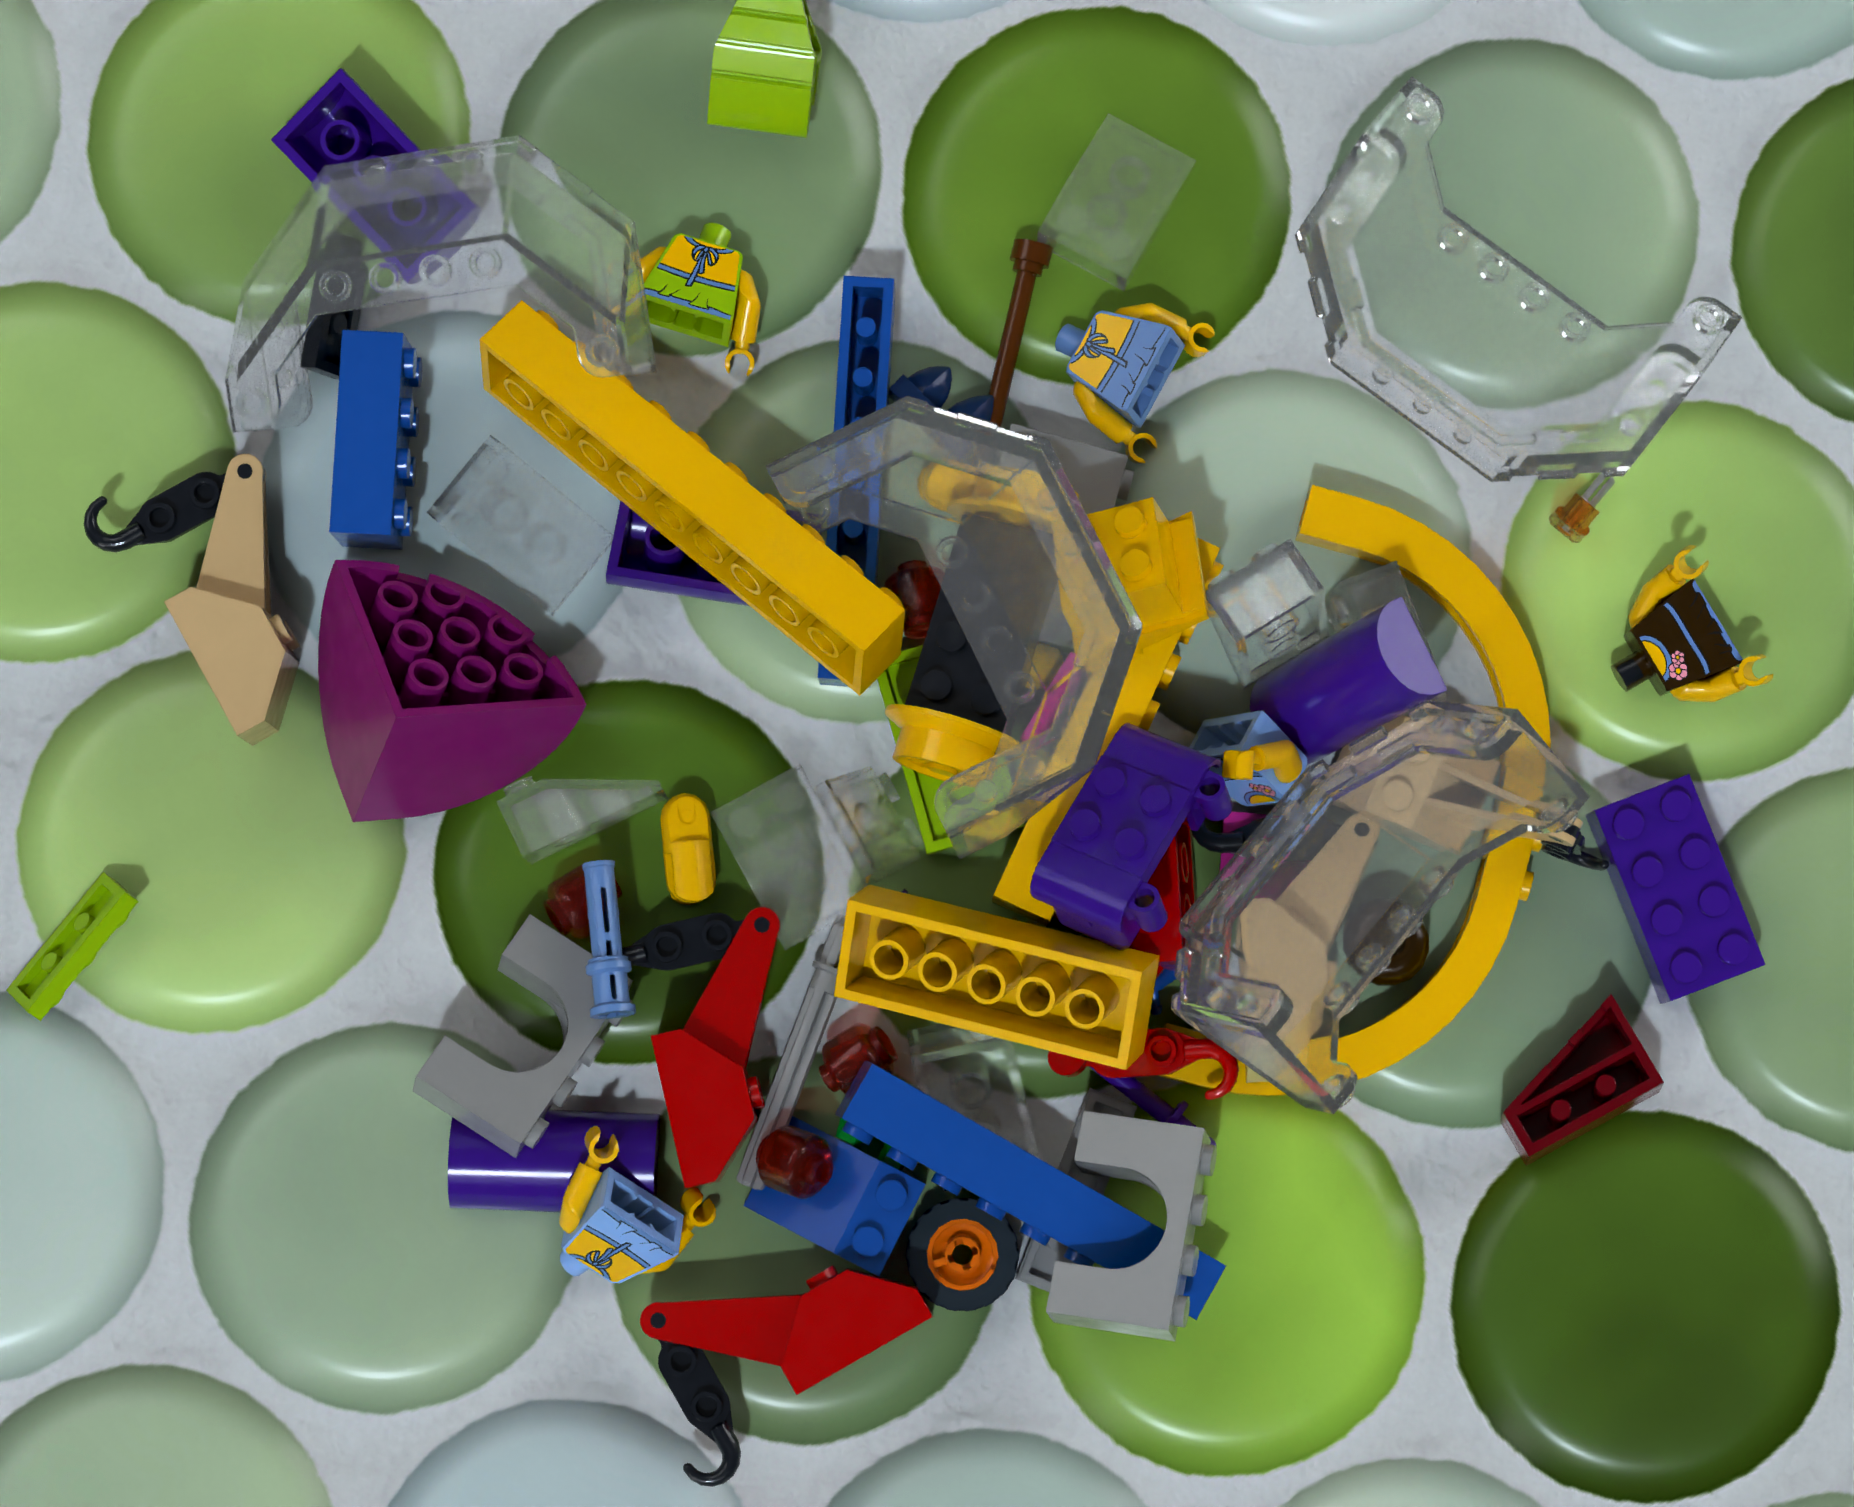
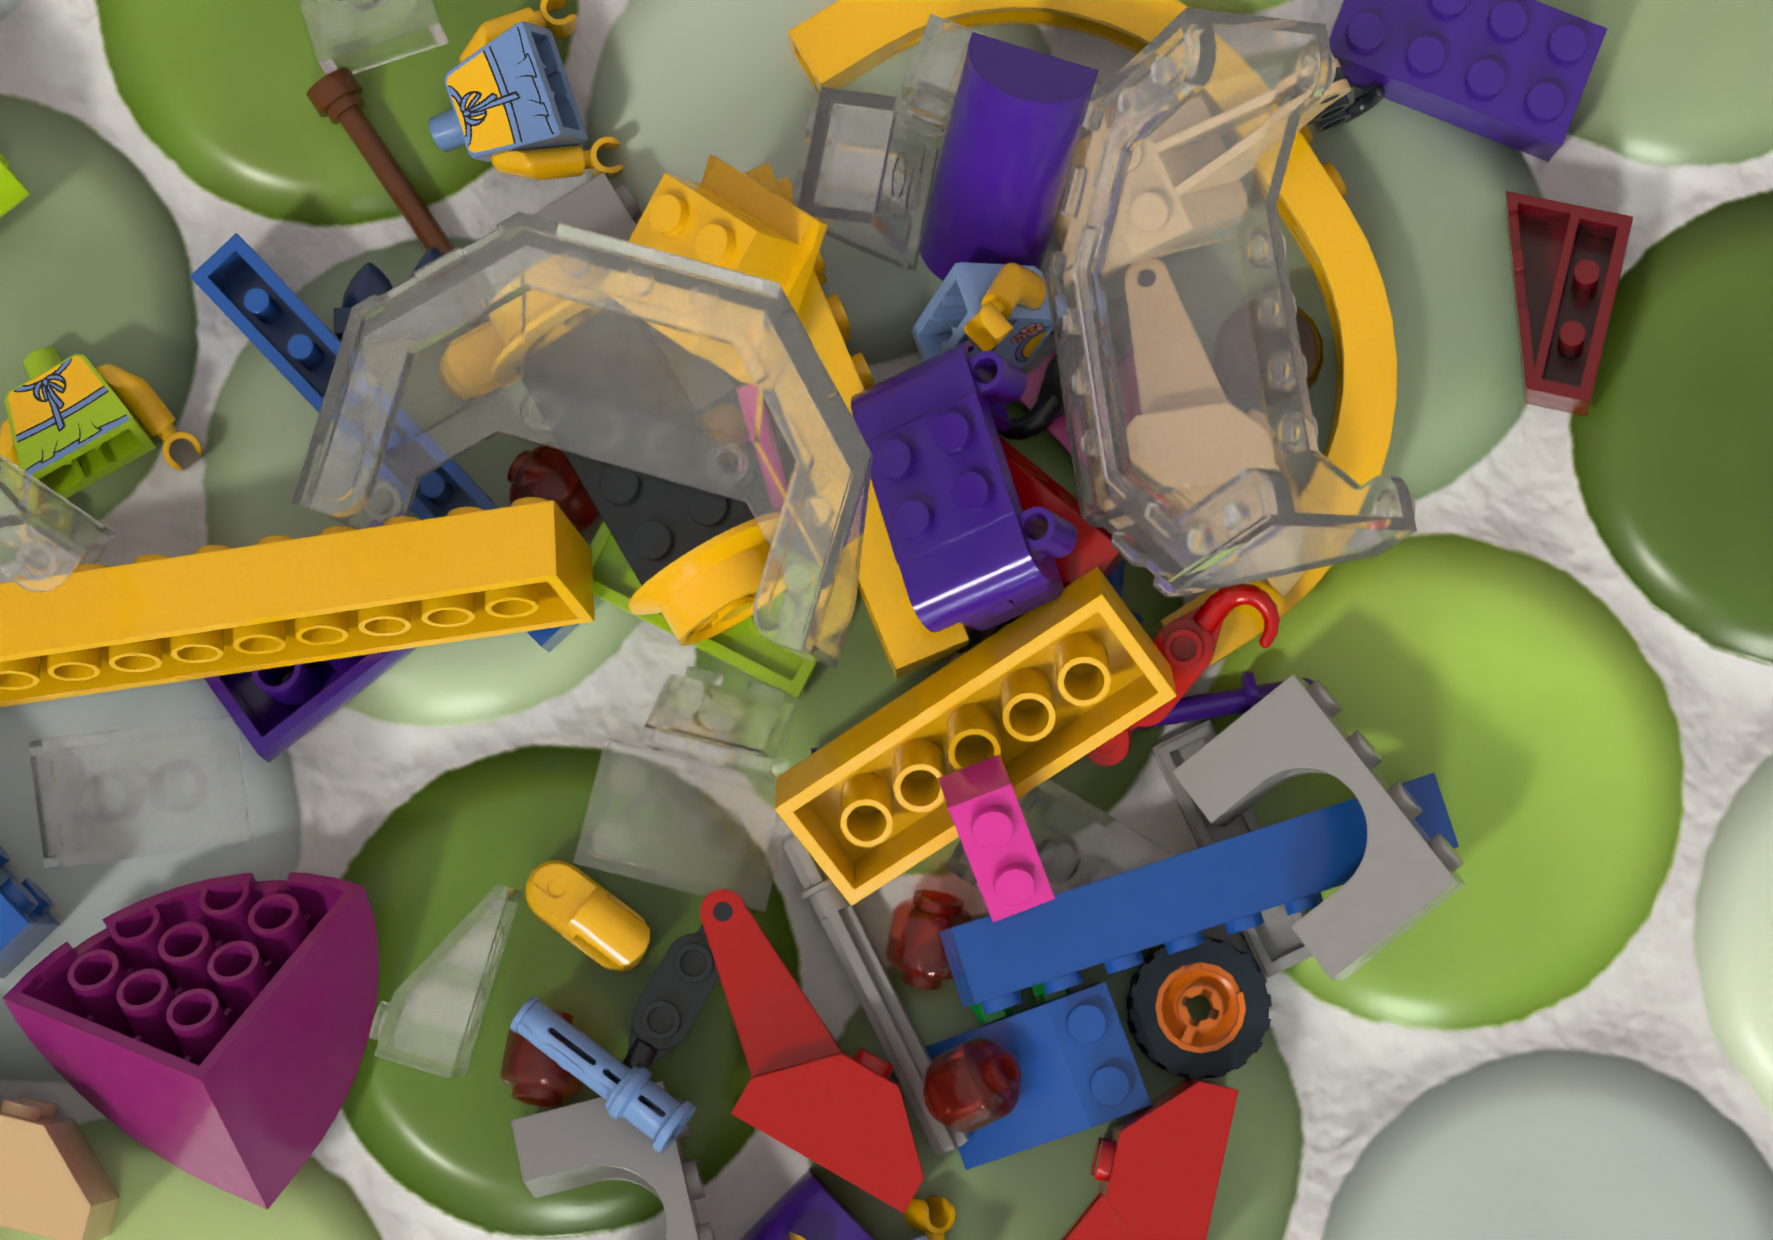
camera: 45 degrees left, 0 degrees up
(947, 1042) = (996, 838): none -> dark pink brick

